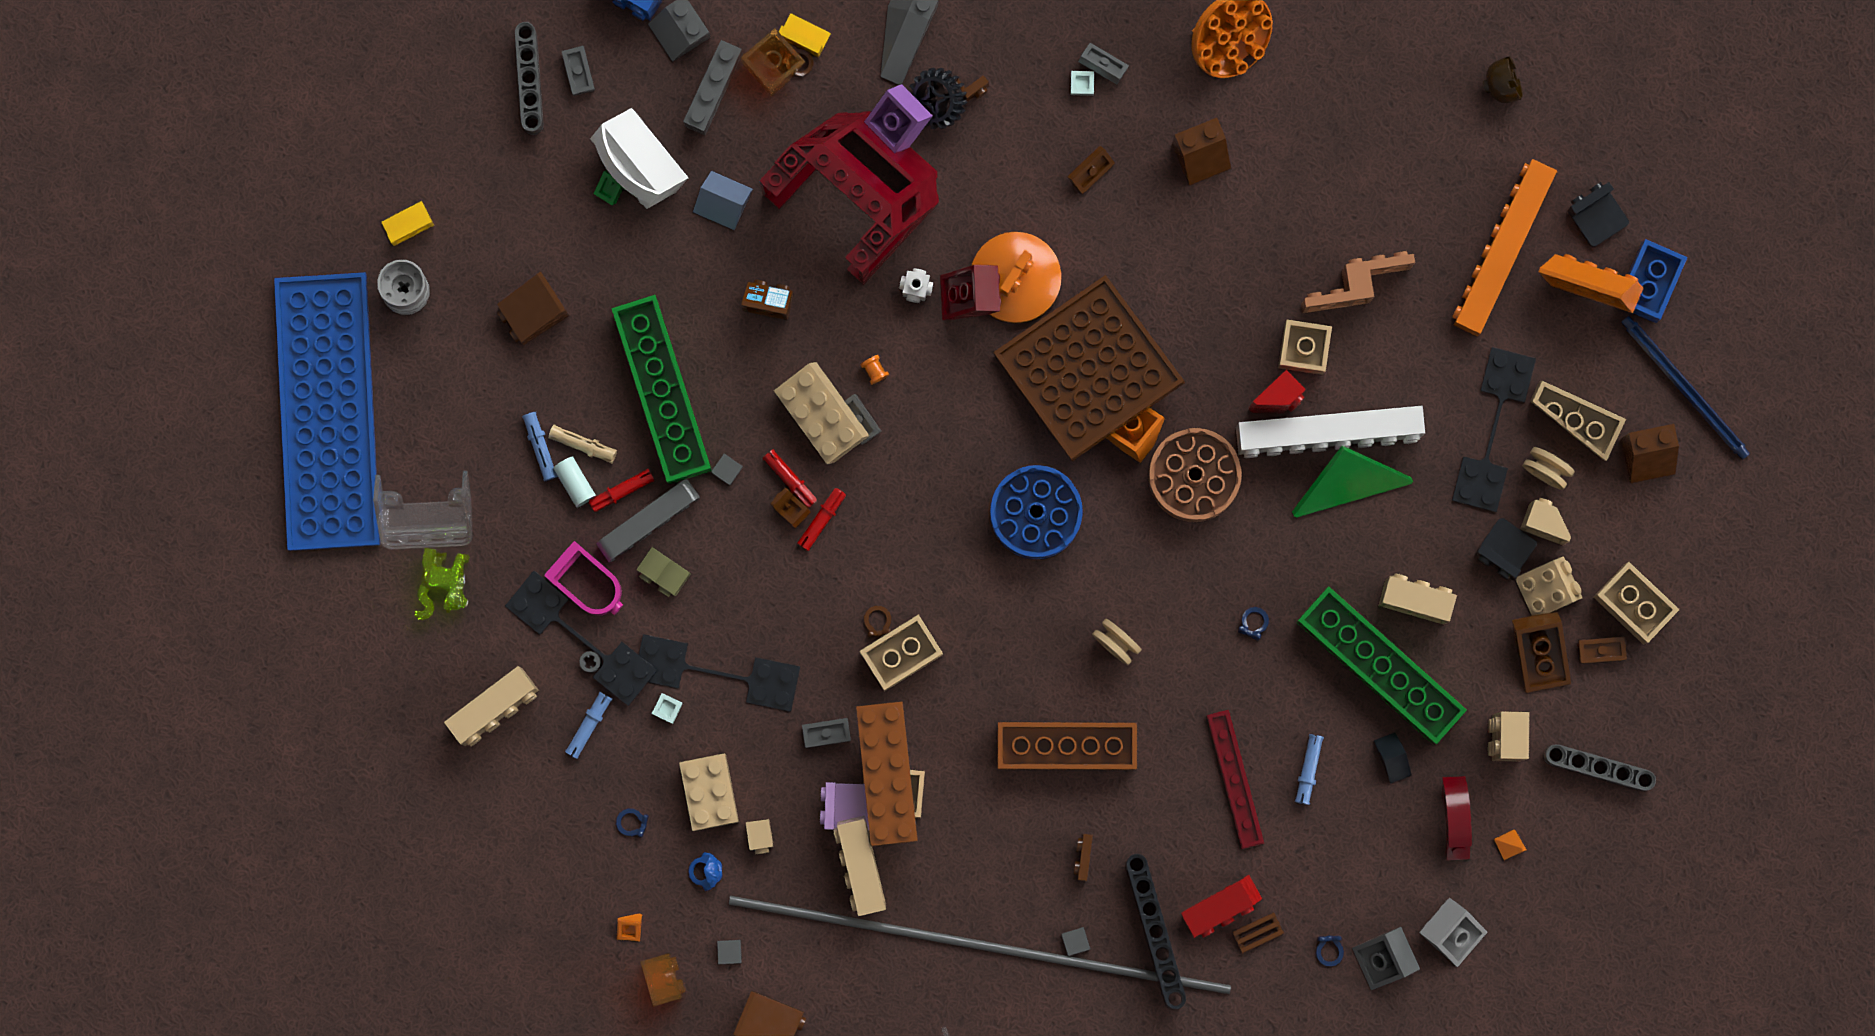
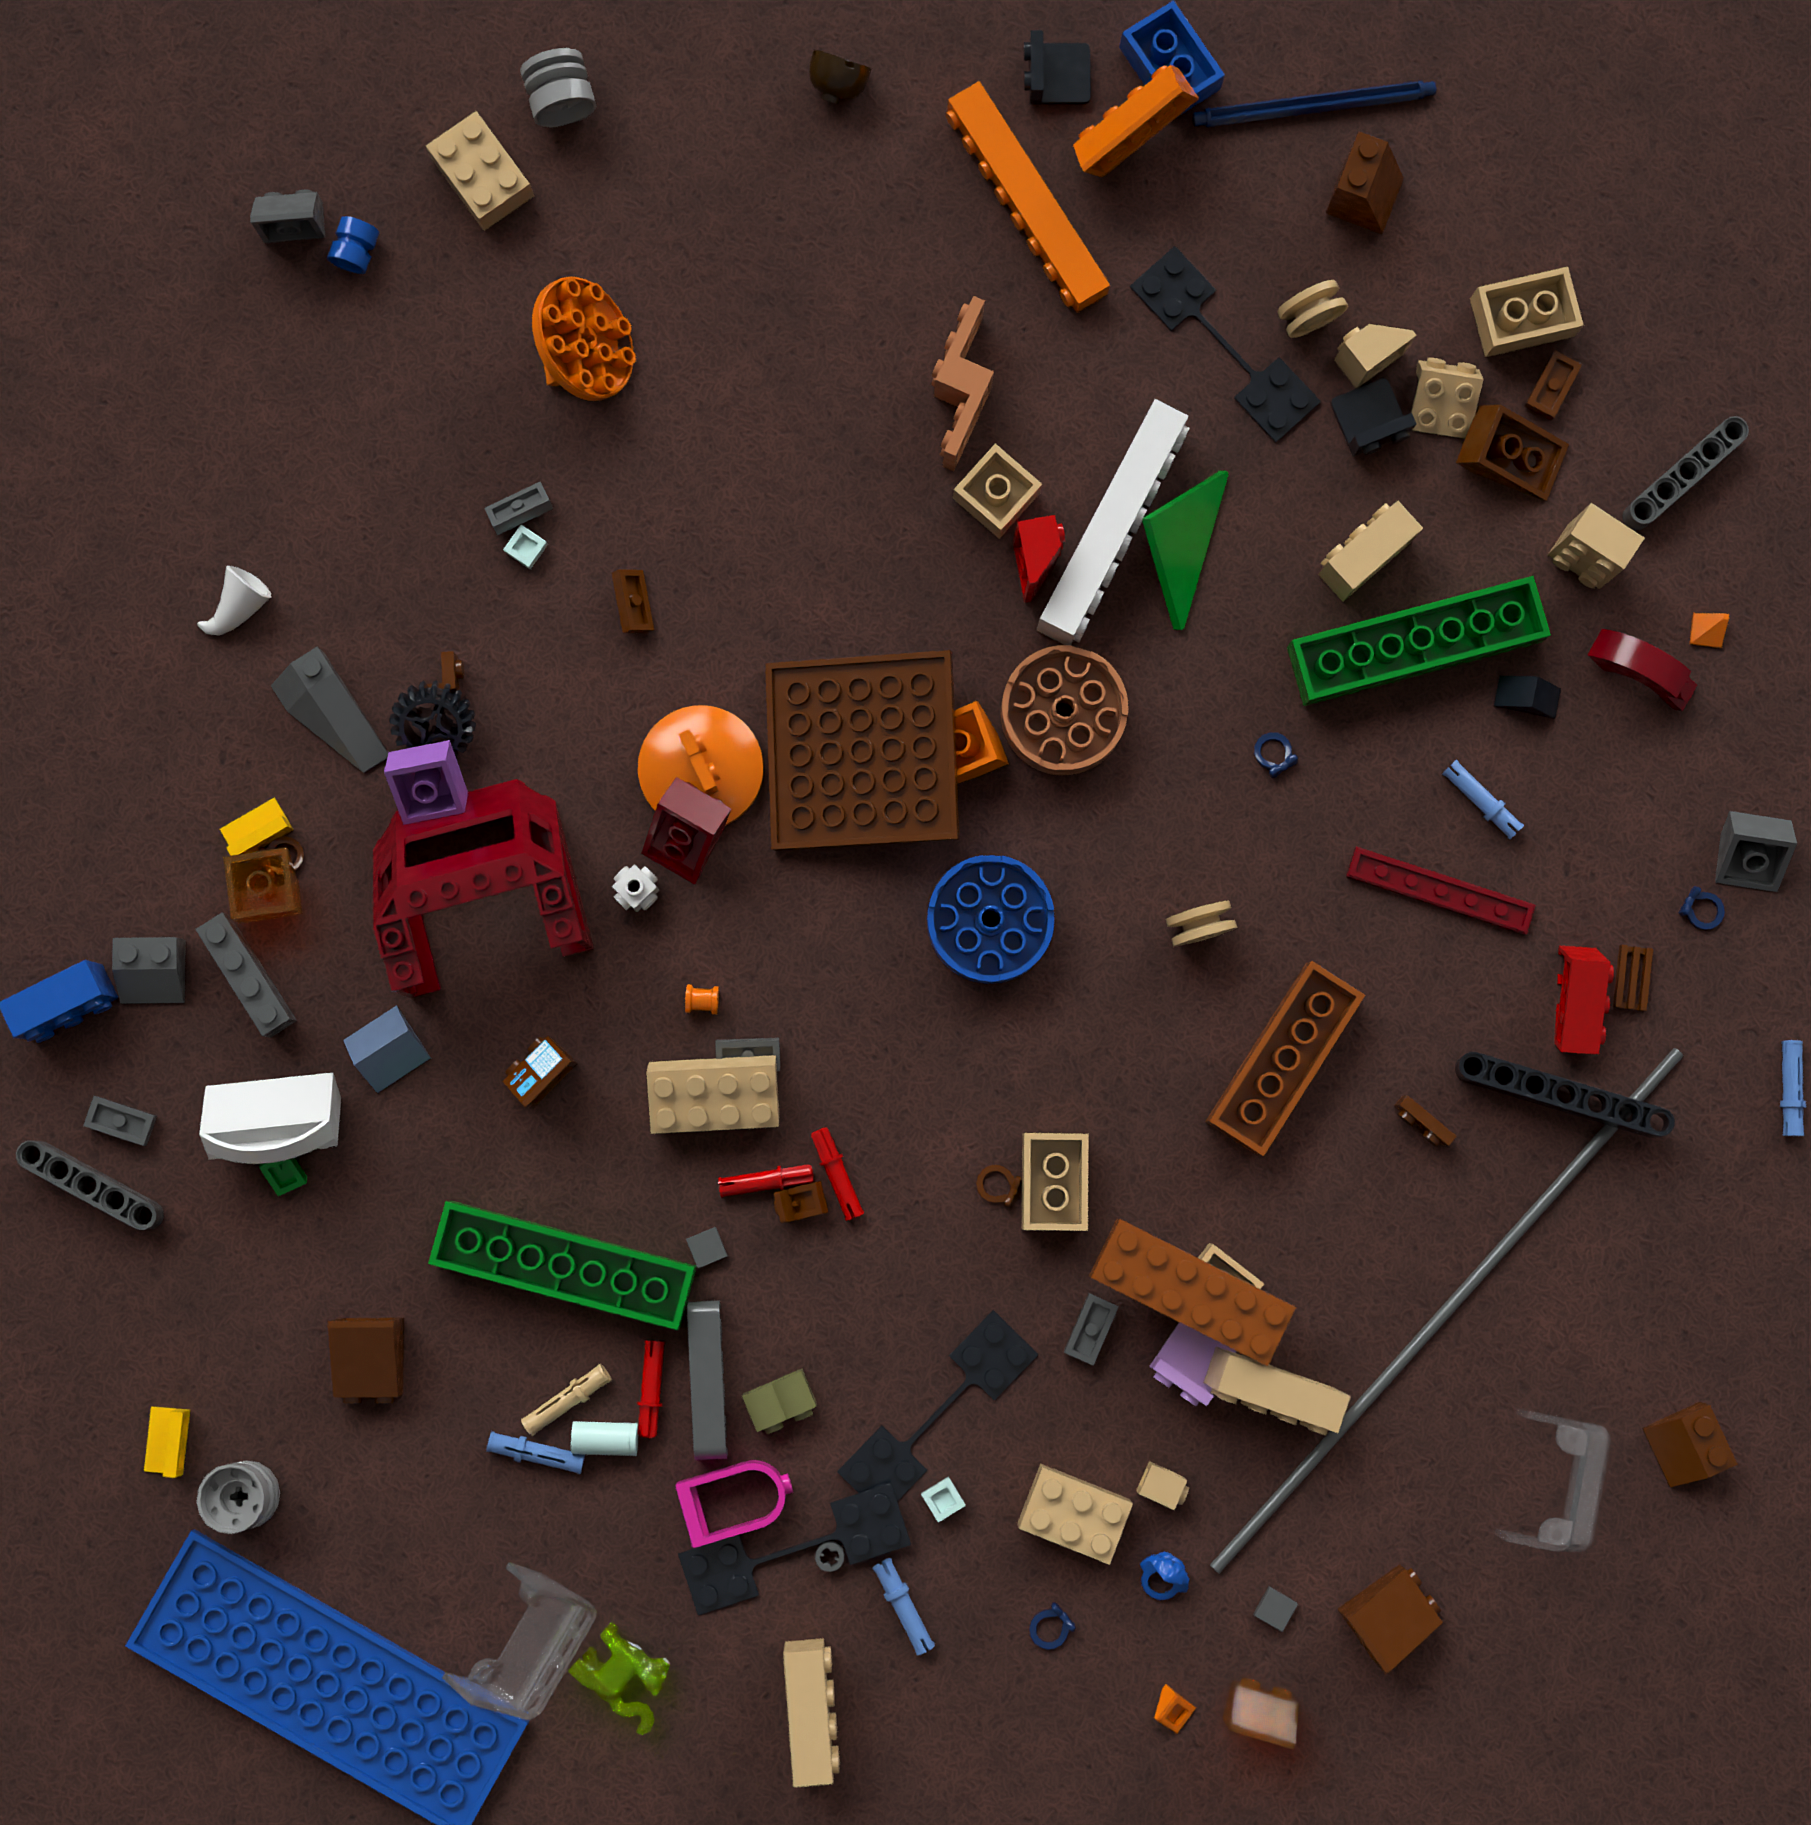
camera: 65 degrees left, 0 degrees up
(1075, 941) = (1514, 1193): dark grey tile -> none
(1202, 151) = (695, 460): reddish brown slope -> none
(1453, 932) = (1769, 756): light grey slope -> none
(1583, 420) = (1293, 229): tan wedge -> none

